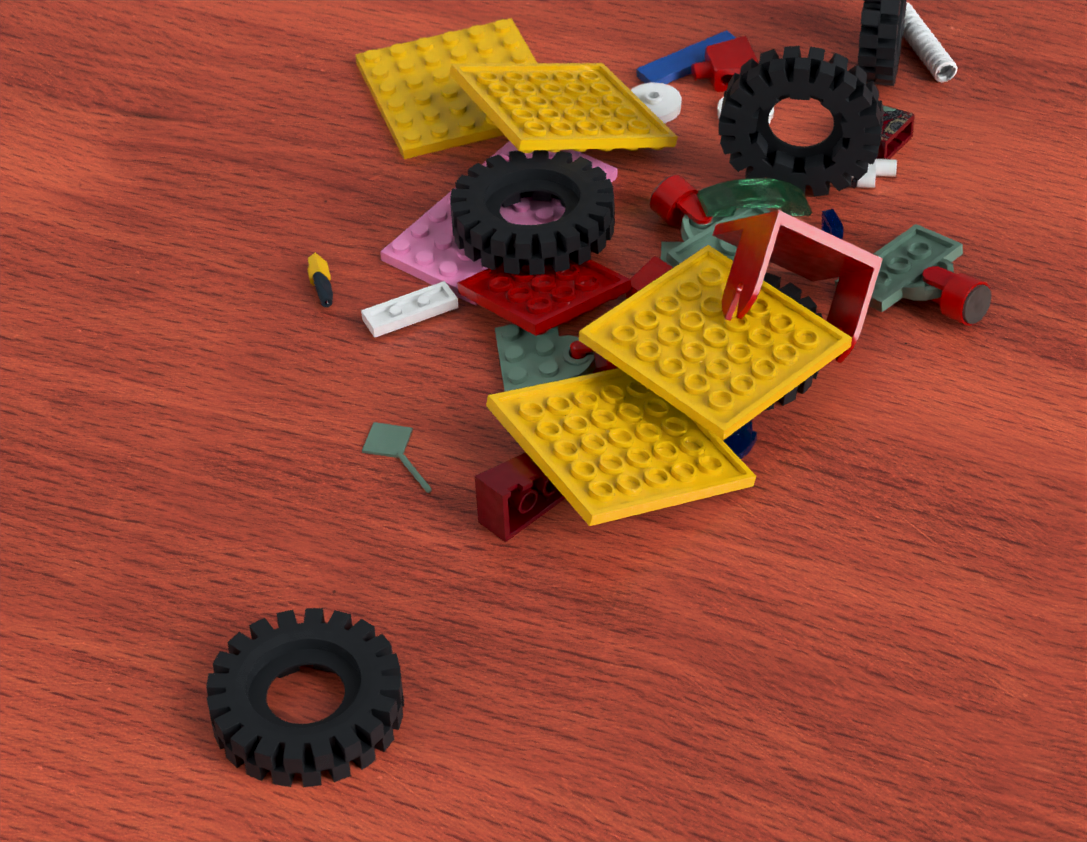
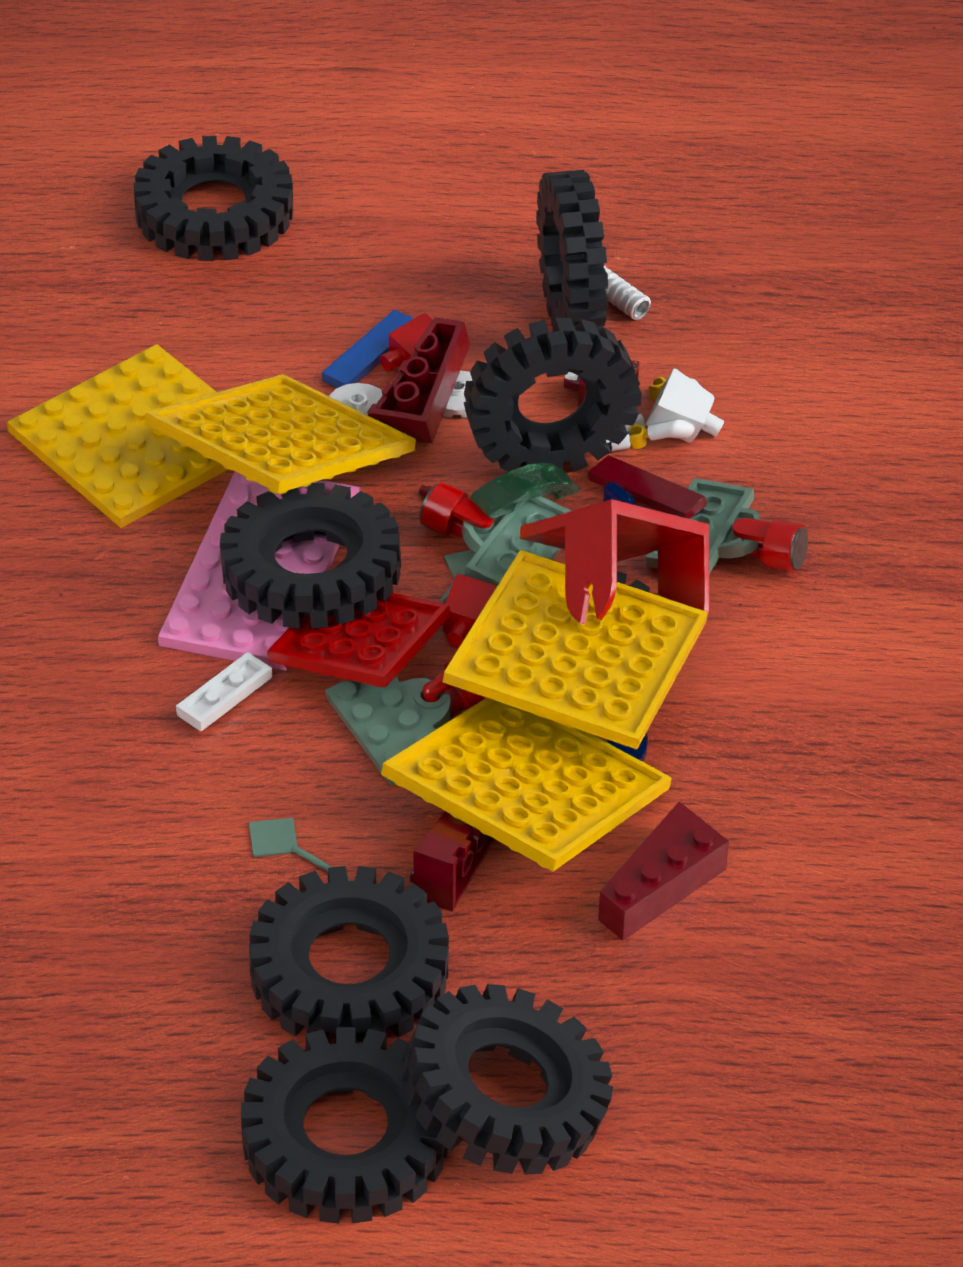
camera: 25 degrees left, 0 degrees up
(319, 277) = (104, 679): piece -> none
(436, 585) = (391, 999): none -> black tyre
(472, 751) = (533, 1134): none -> black tyre
(696, 105) = (424, 382): none -> dark red wedge
(701, 555) = (662, 871): none -> dark red wedge
(868, 224) = (648, 488): none -> dark red tile
(929, 165) = (678, 411): none -> white torso

